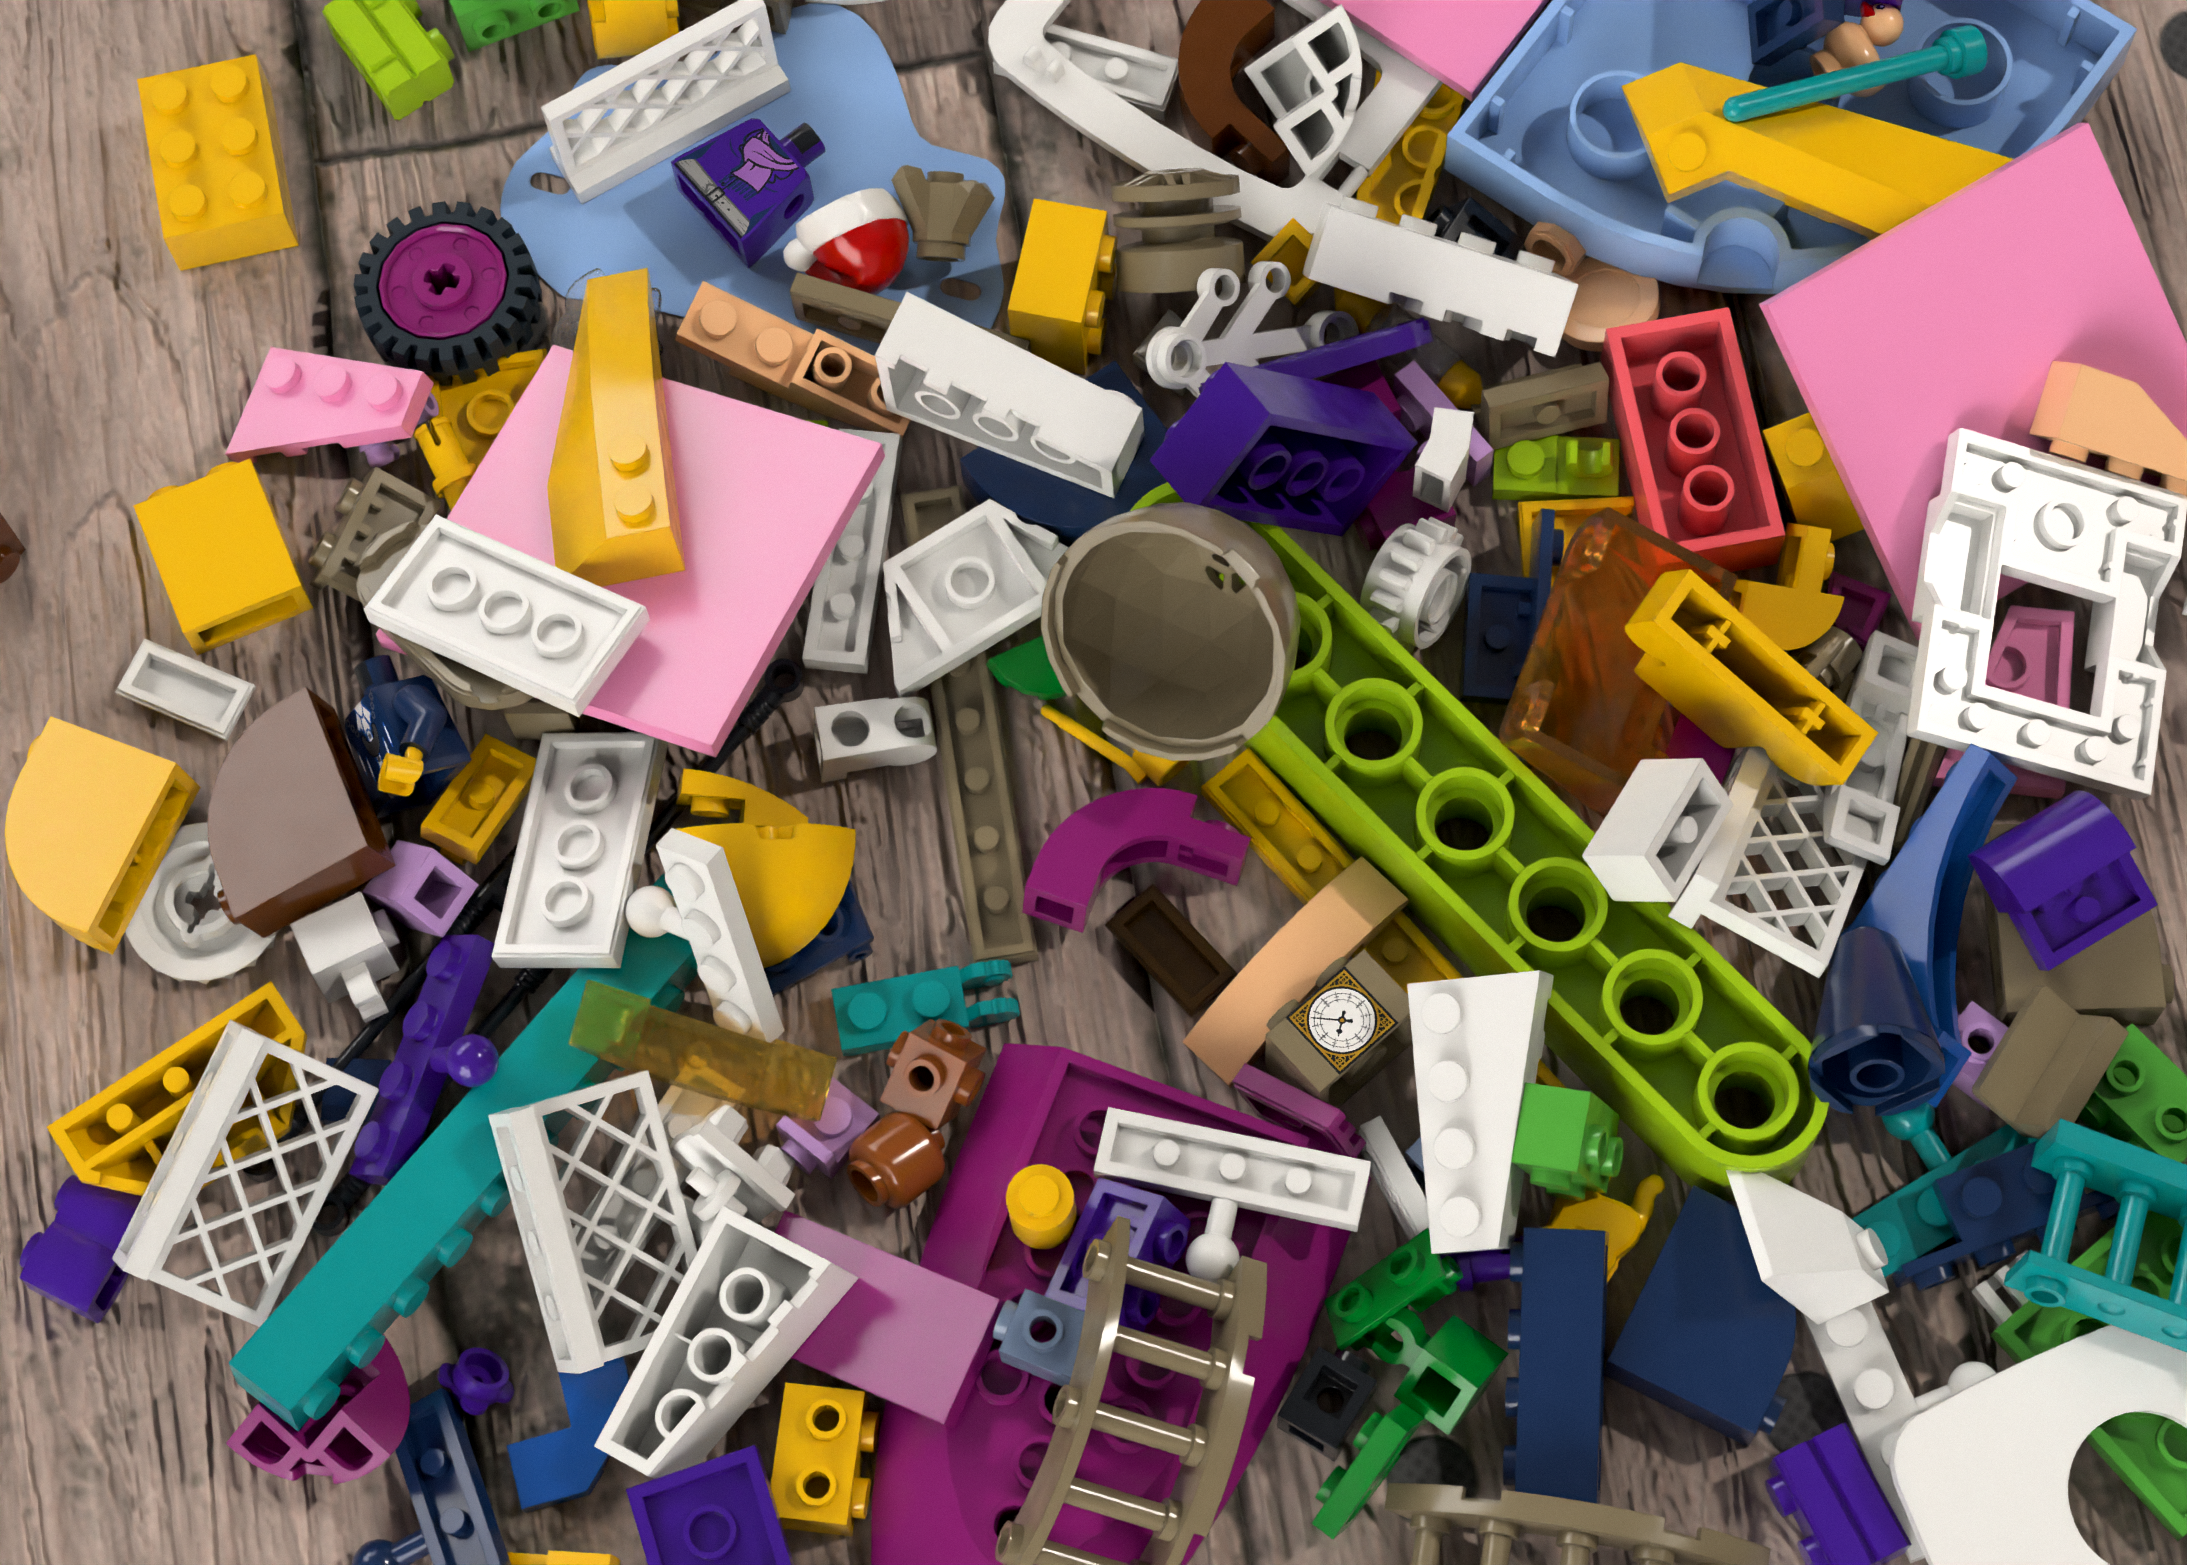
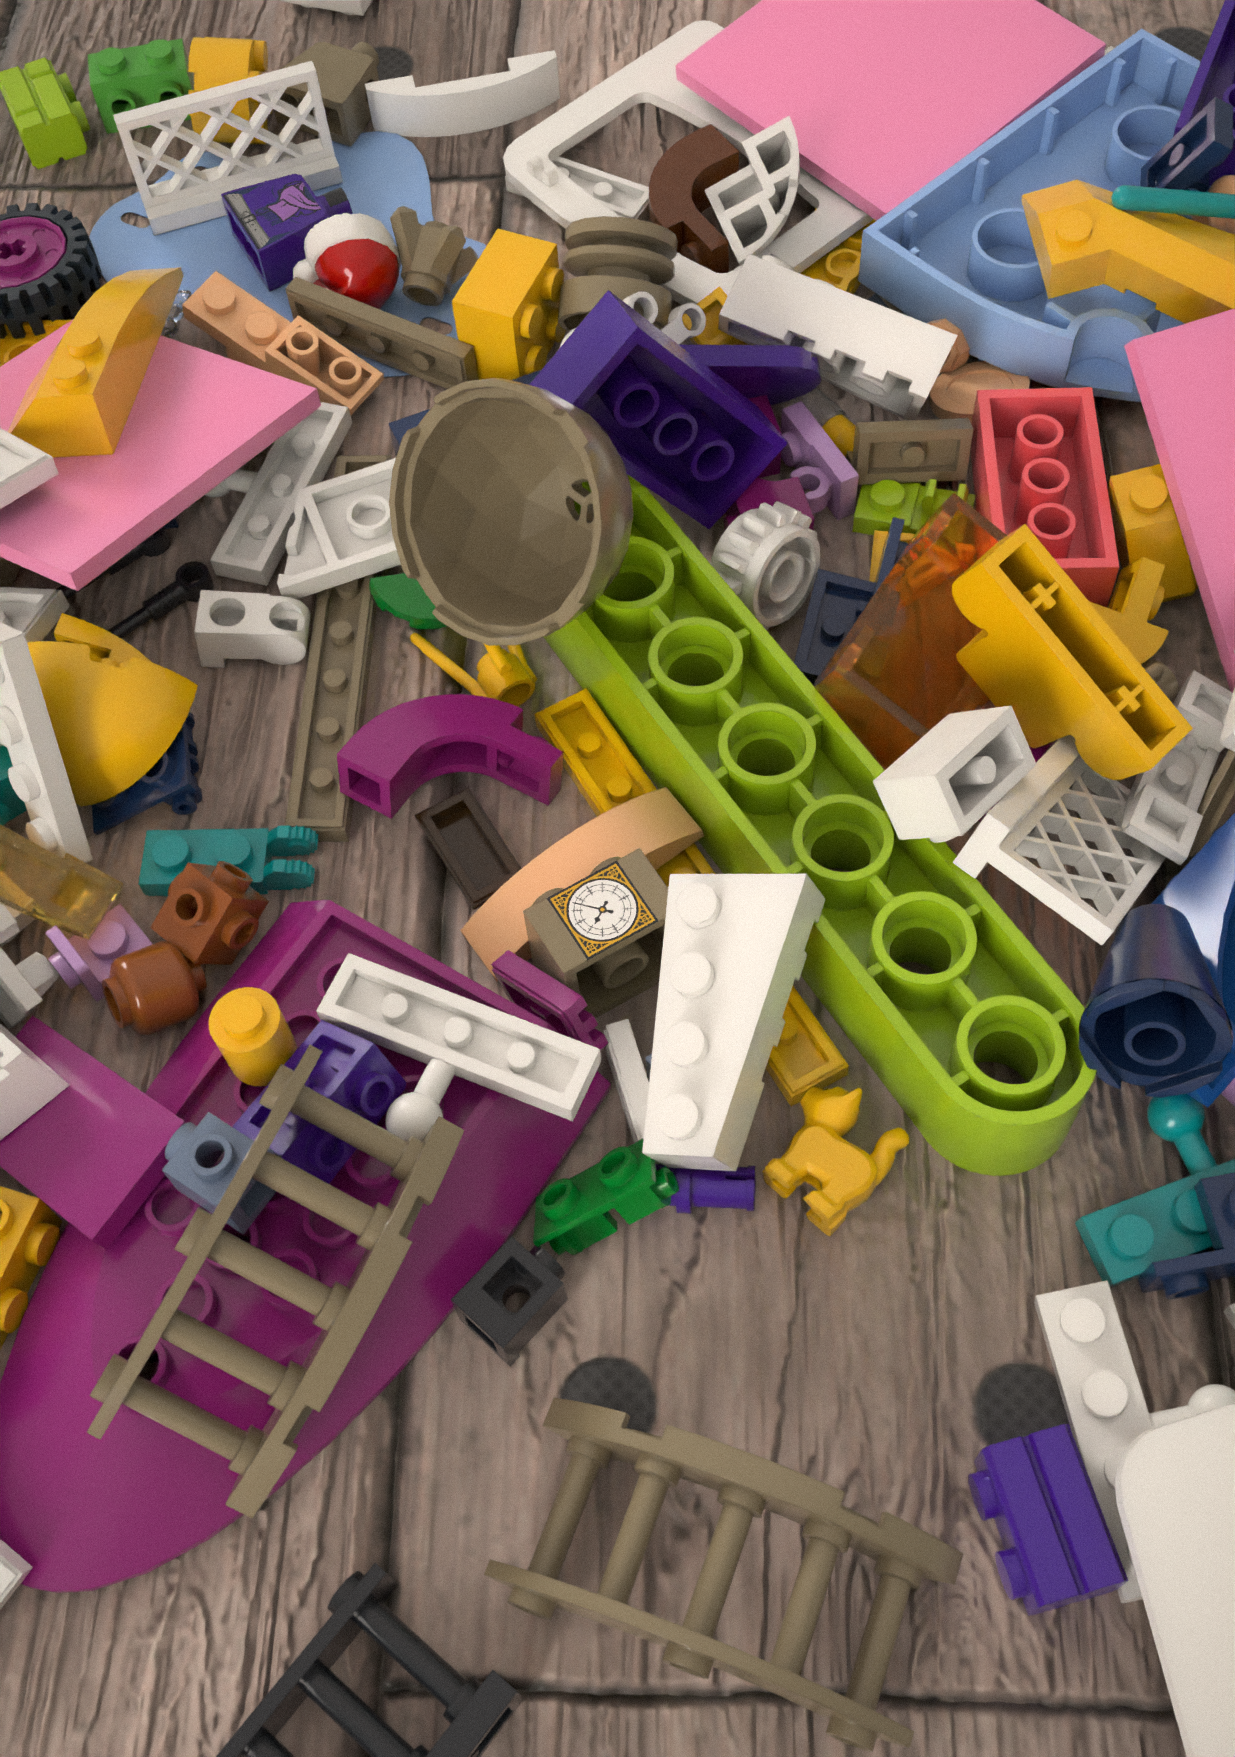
camera: 10 degrees right, 10 degrees down
(1005, 398) = (400, 345): white wedge -> none
(1379, 1446) = (540, 1373): green wing -> none
(1444, 459) = (810, 462): white piece -> none
(1445, 1370) = (640, 1287): green brick -> none
(1559, 1363) = (761, 1302): dark blue brick -> none
(1567, 1141) = (809, 1063): bright green brick -> none
(1708, 1327) = (935, 1292): dark blue brick -> none
(1808, 1247) = (1054, 1224): white slope -> none
(1861, 607) = (1181, 654): magenta tile -> none

